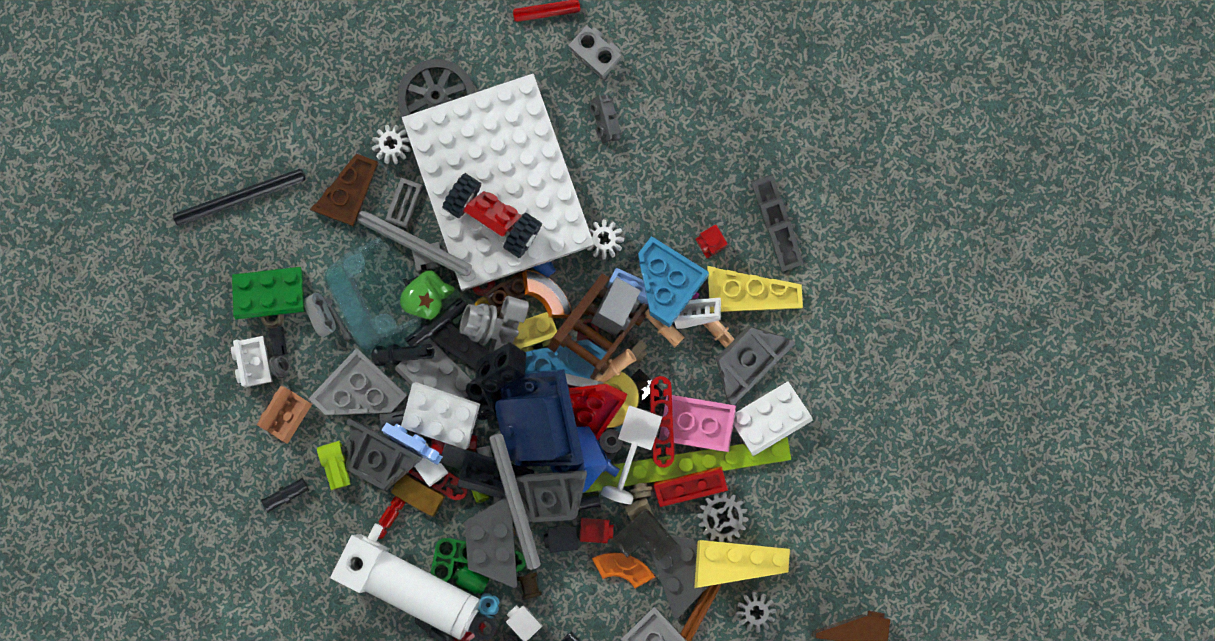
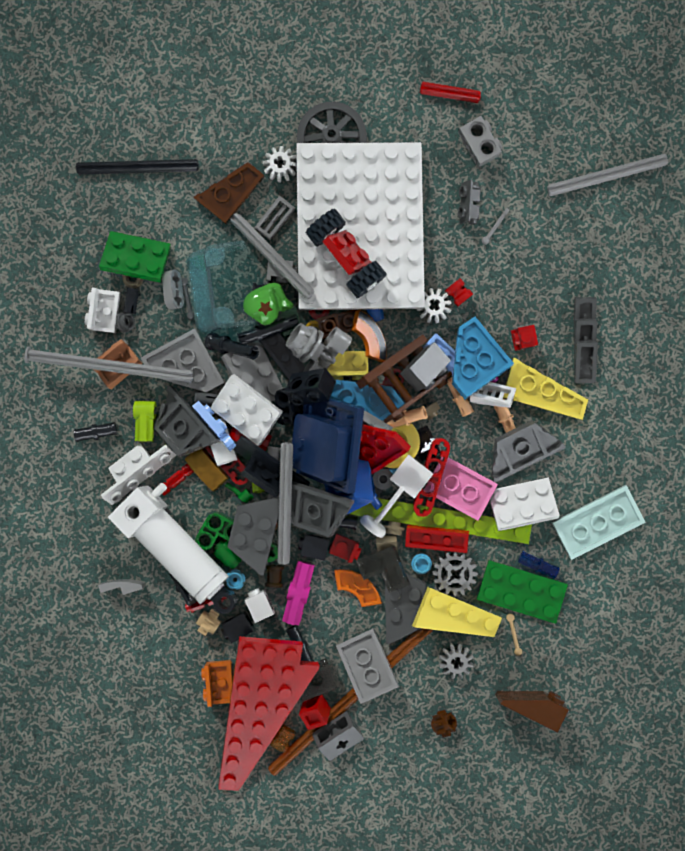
camera: 20 degrees right, 5 degrees up
(277, 417) = (107, 365): none -> light grey axle
(340, 522) = (134, 469): none -> white bracket
(469, 510) = (245, 496): none -> green hand
(561, 595) = (298, 593): none -> dark pink piece
(626, 216) = (459, 292): none -> red wheel
(636, 152) = (485, 240): none -> light grey hinge
(683, 519) = (421, 563): none -> medium azure plate
(741, 42) = (607, 175): none -> light grey axle
(799, 547) = (510, 617): none -> tan hinge
(801, 513) = (522, 591): none -> green plate
(809, 478) = (538, 565): none -> clear blue axle
(857, 411) = (598, 522): none -> light aqua plate

